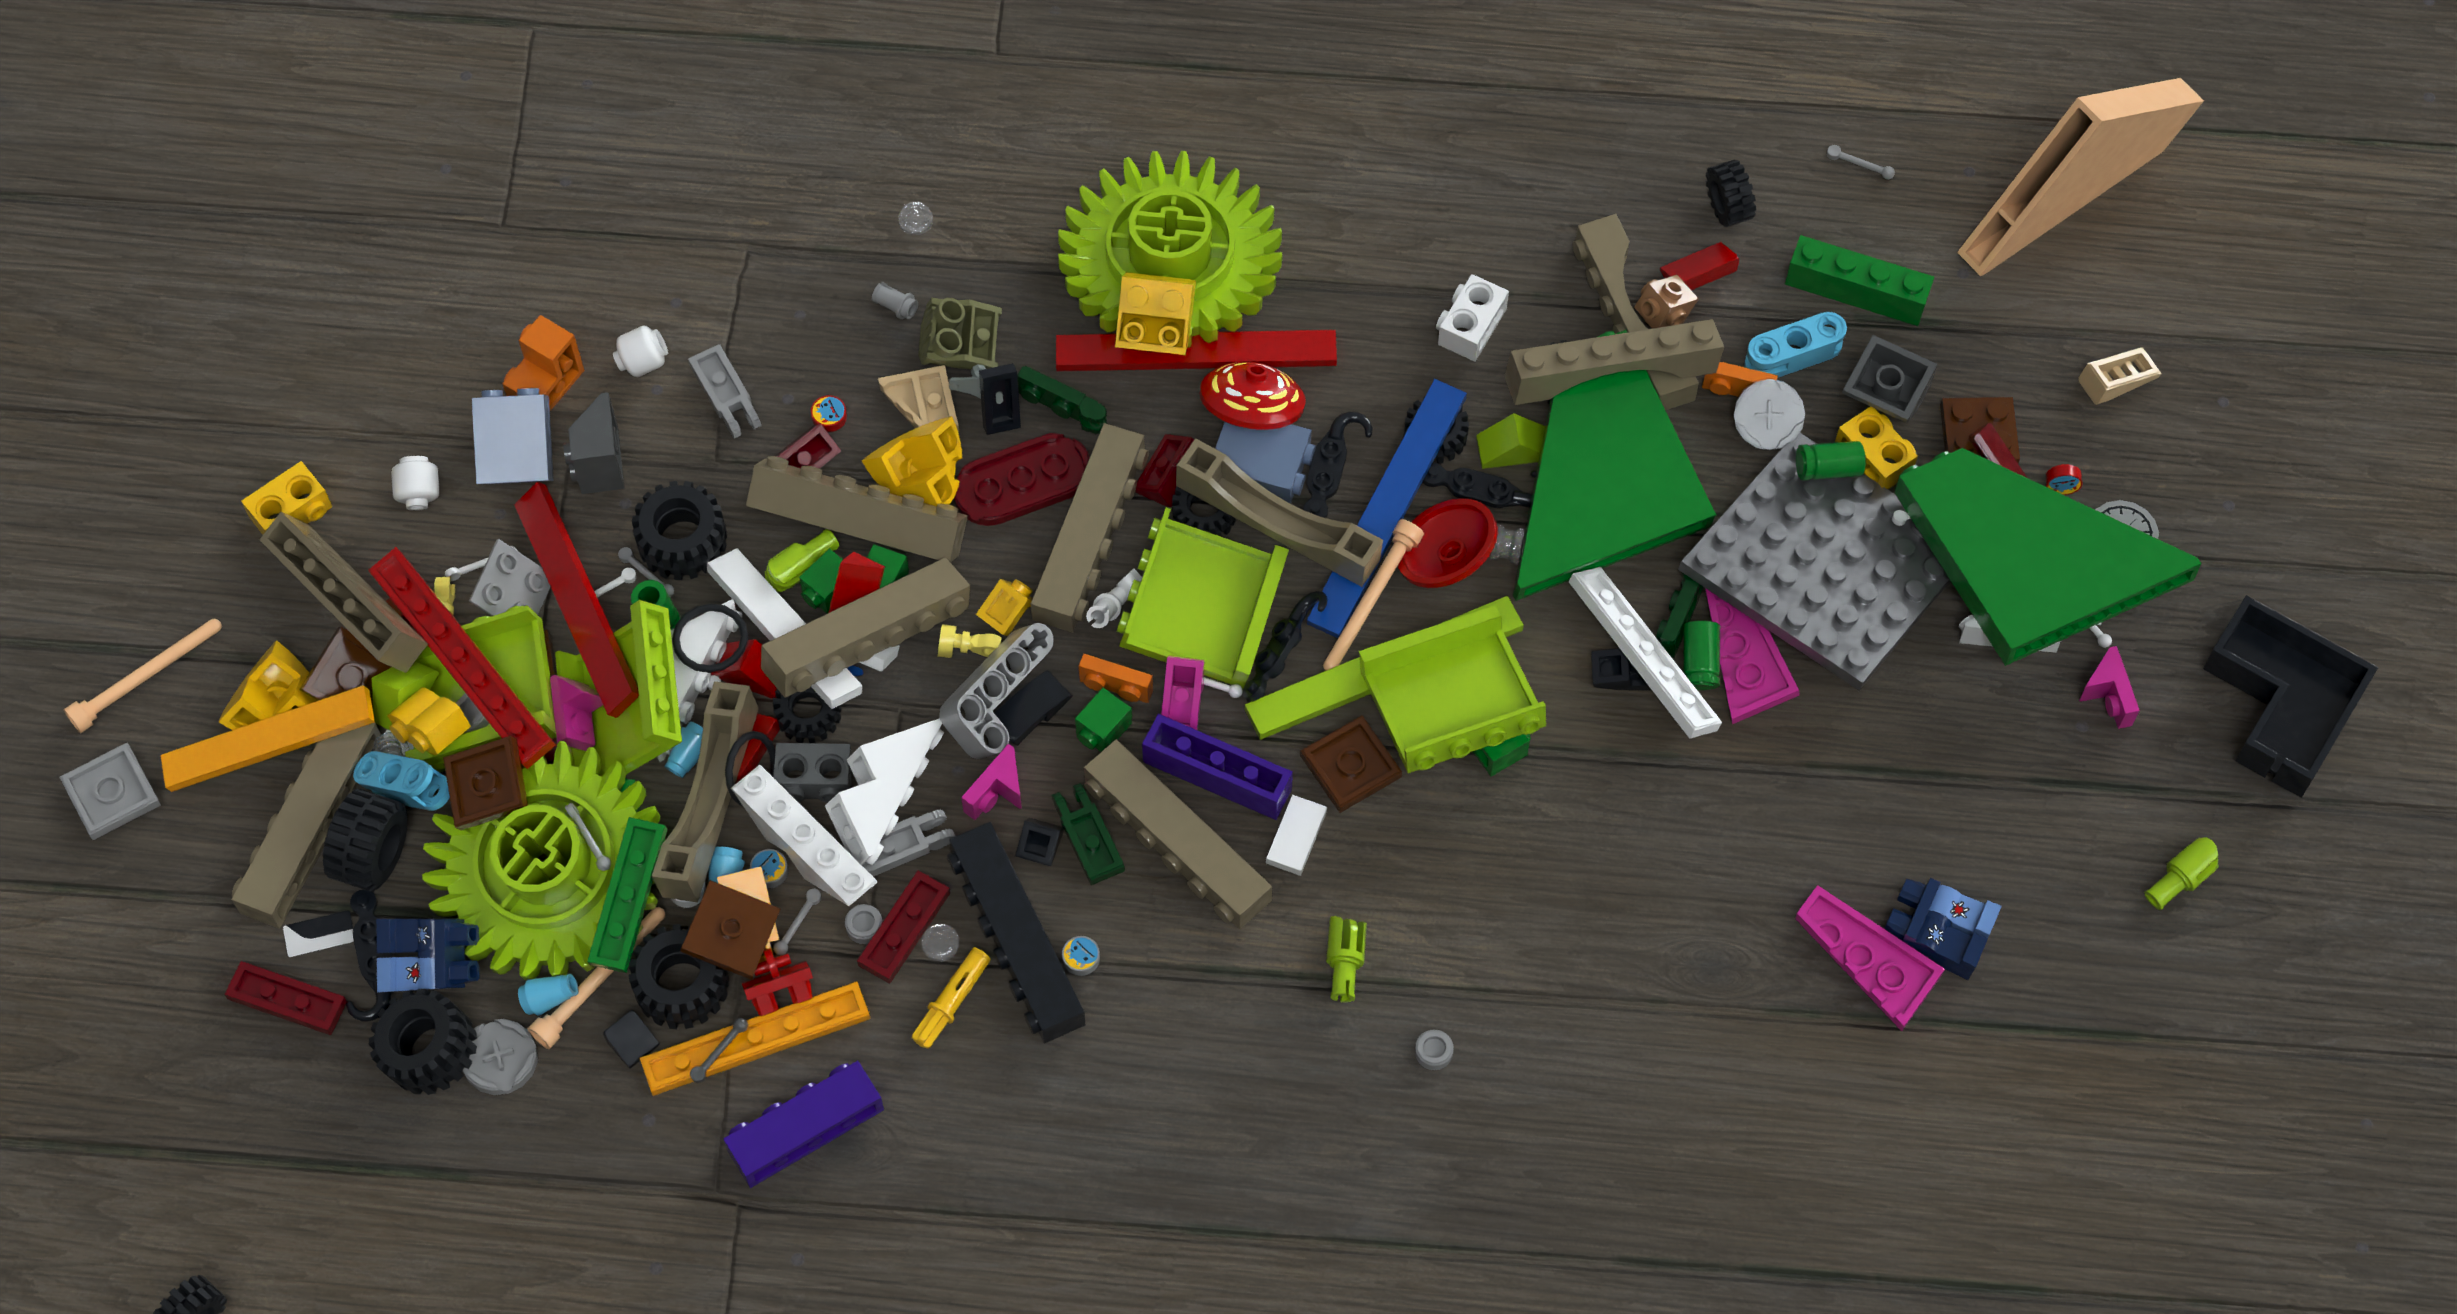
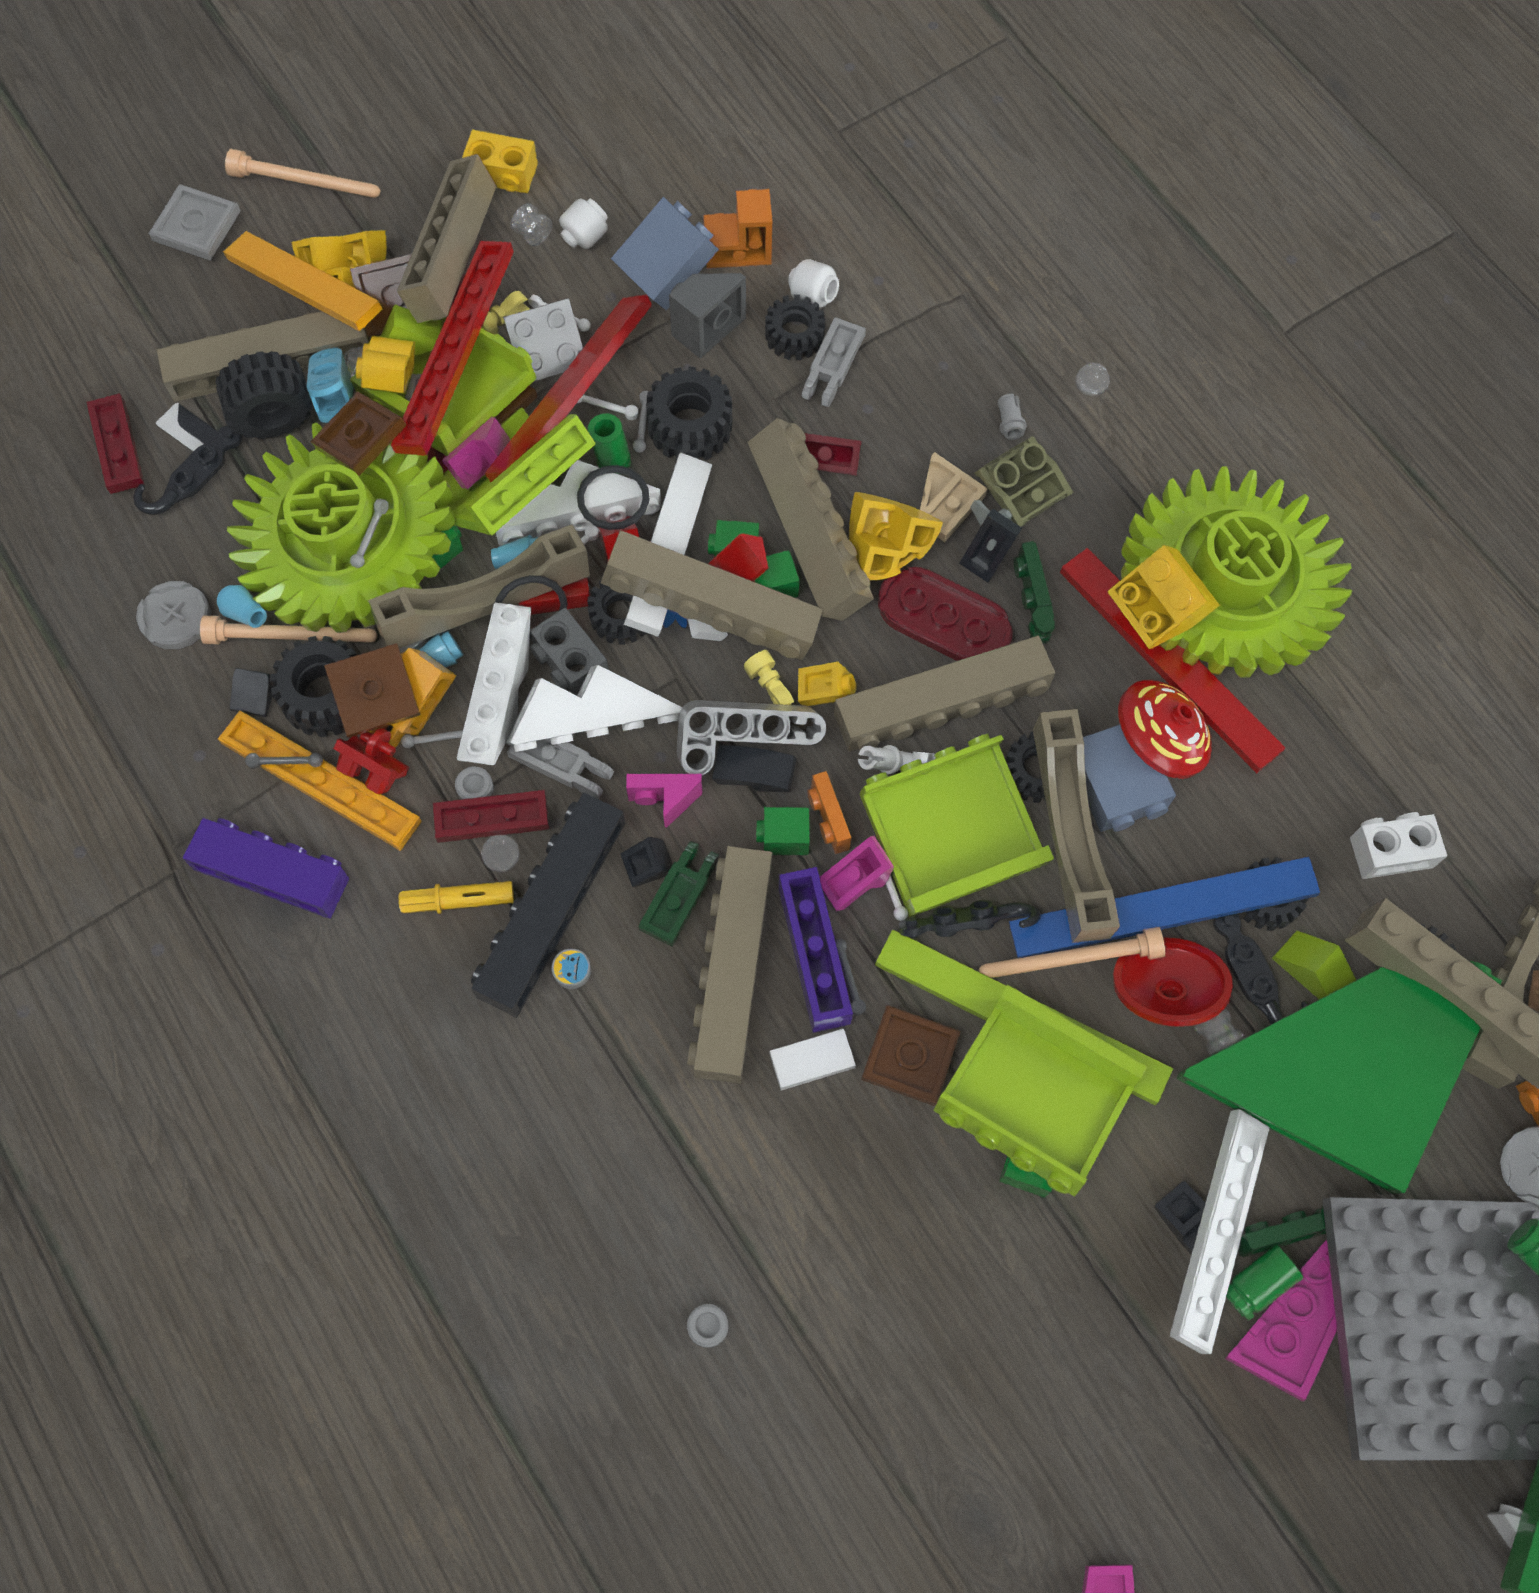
camera: 50 degrees right, 5 degrees up
(376, 523) = (531, 224): none -> clear wheel
(404, 1024) = (135, 553): black tyre -> none
(439, 950) = (205, 503): dark blue hips -> none
(627, 895) = (342, 596): green plate -> none
(663, 378) = (794, 311): none -> black tyre
(773, 865) = (464, 682): tile -> none
(787, 566) = (731, 507): lime arm -> none
(829, 412) = (878, 443): tile -> none
(1159, 476) = (1026, 711): dark red slope -> none
(1329, 462) = (1161, 834): black piece -> none
(1345, 955) = (733, 1183): lime arm -> none

